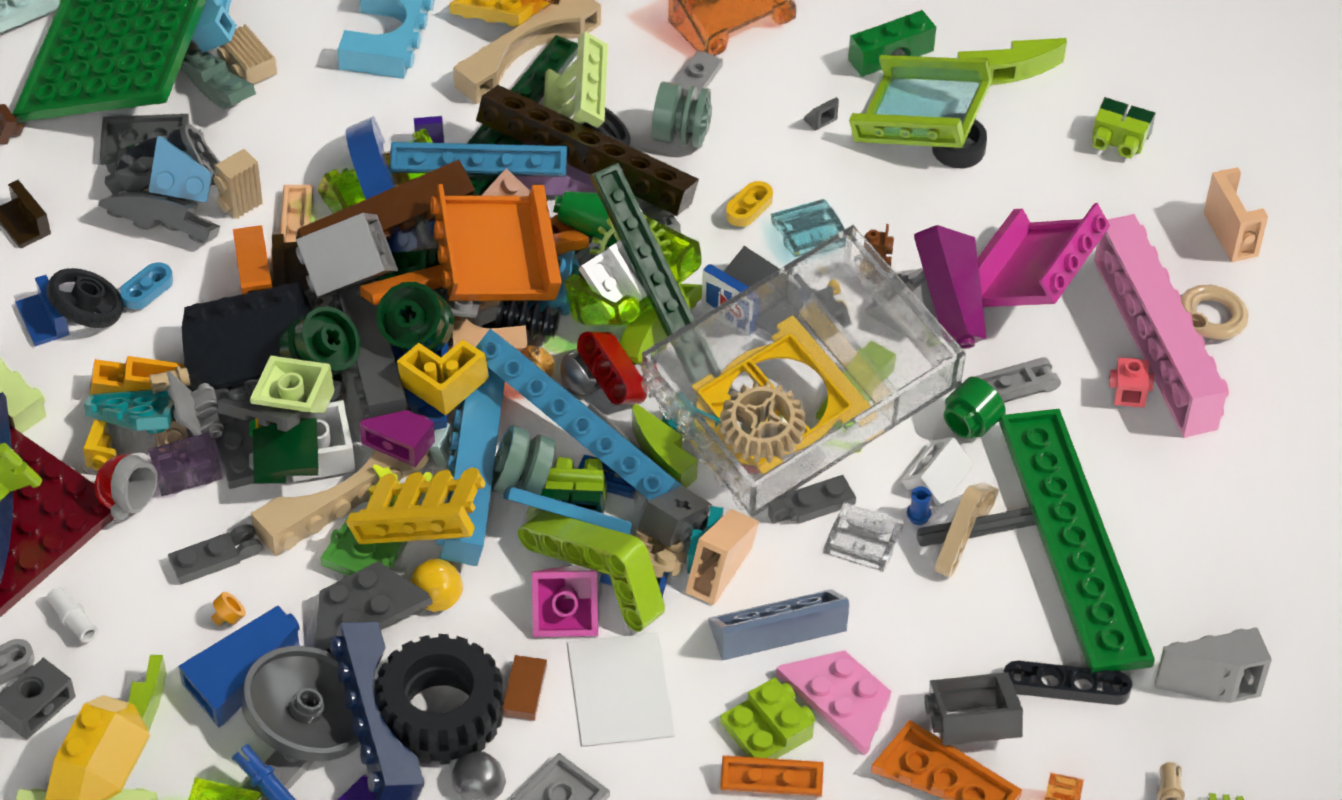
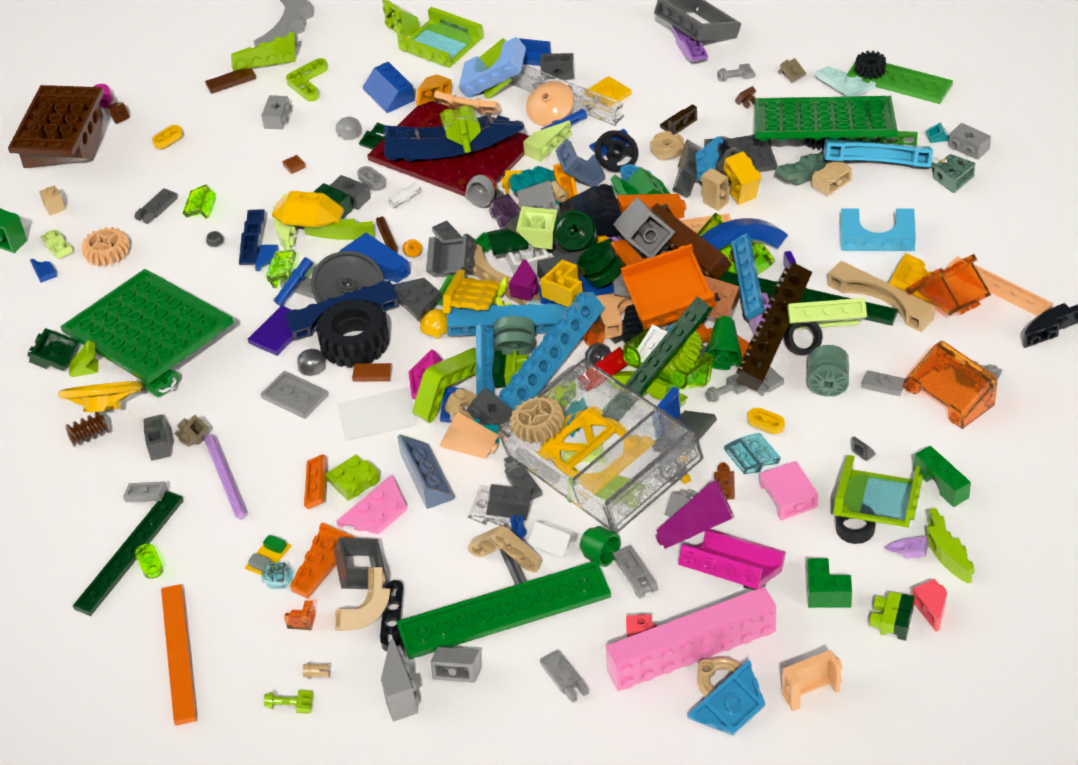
camera: 90 degrees right, 5 degrees down
(49, 723) = (337, 196): none -> dark green brick
(73, 249) = (663, 151): none -> tan plate
(111, 341) = (587, 171): none -> sand blue panel
(169, 649) = (386, 233): none -> reddish brown axle
(205, 274) = (639, 183): none -> green bracket
(231, 132) = (743, 177): none -> yellow brick
(238, 506) = (483, 241): none -> green tile
(291, 536) = (450, 255): none -> dark grey panel
(880, 504) = (508, 501): none -> dark grey brick
(889, 194) = (789, 490): none -> bright pink panel
(1007, 96) = (910, 547): none -> lavender plate
(1065, 700) = (370, 609): none -> tan arch
(1066, 188) = (827, 589): none -> green brick
(1102, 82) = (931, 602): none -> coral slope
(1180, 597) = (455, 664): none -> light grey brick
(1194, 482) = (563, 675): none -> light grey hinge
(1258, 300) = (731, 703): none -> dark azure wing

